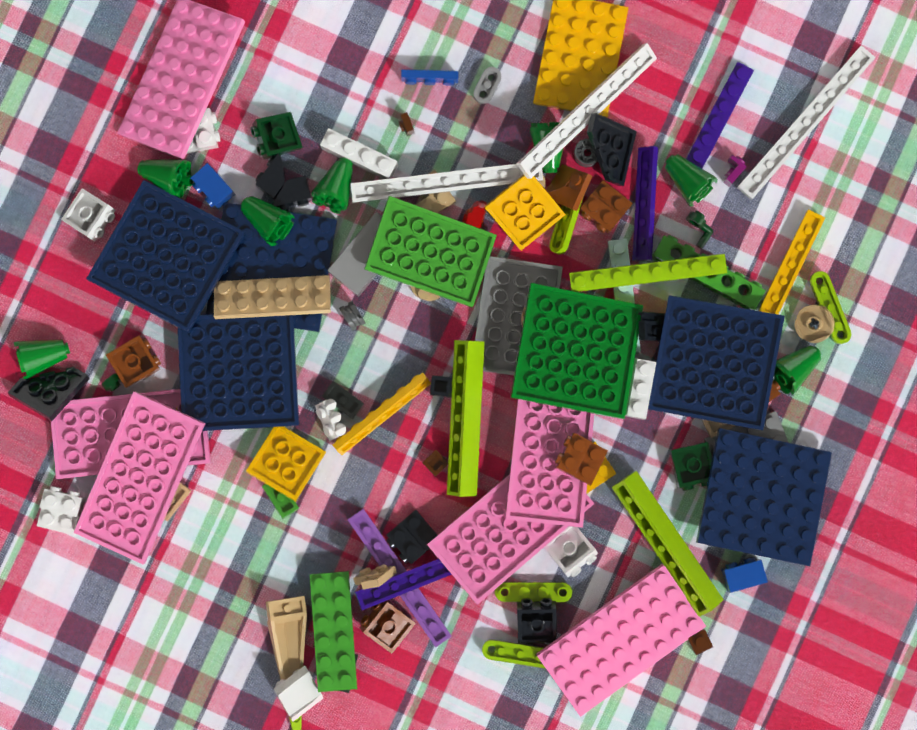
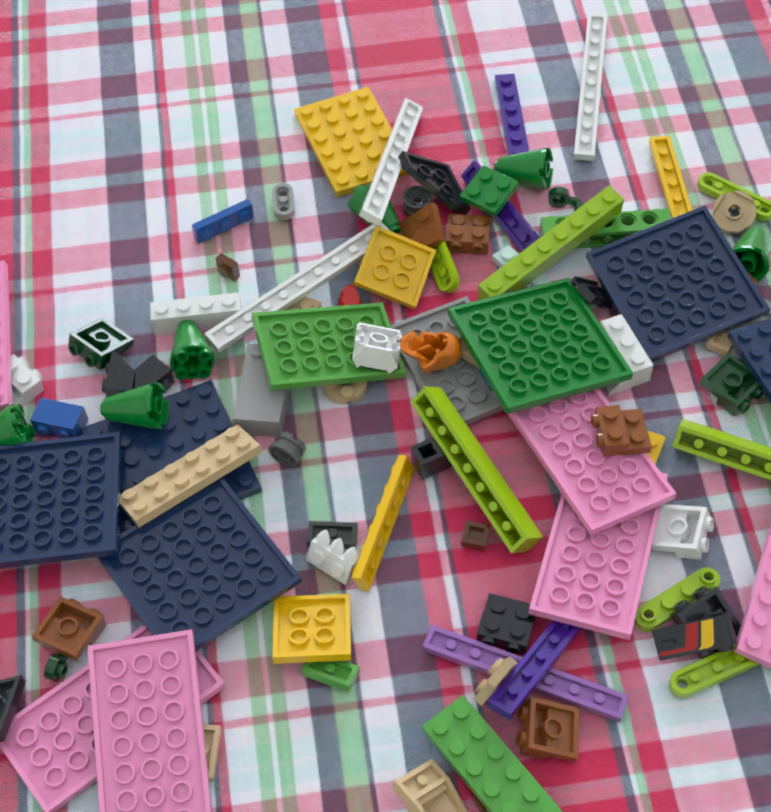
camera: 30 degrees left, 30 degrees down
(463, 276) = (376, 347): none -> white slope
(498, 305) = (432, 350): none -> orange head
(529, 636) = (695, 636): none -> black door
(643, 185) = (489, 191): none -> green plate
(732, 173) = (559, 141): magenta bracket -> none

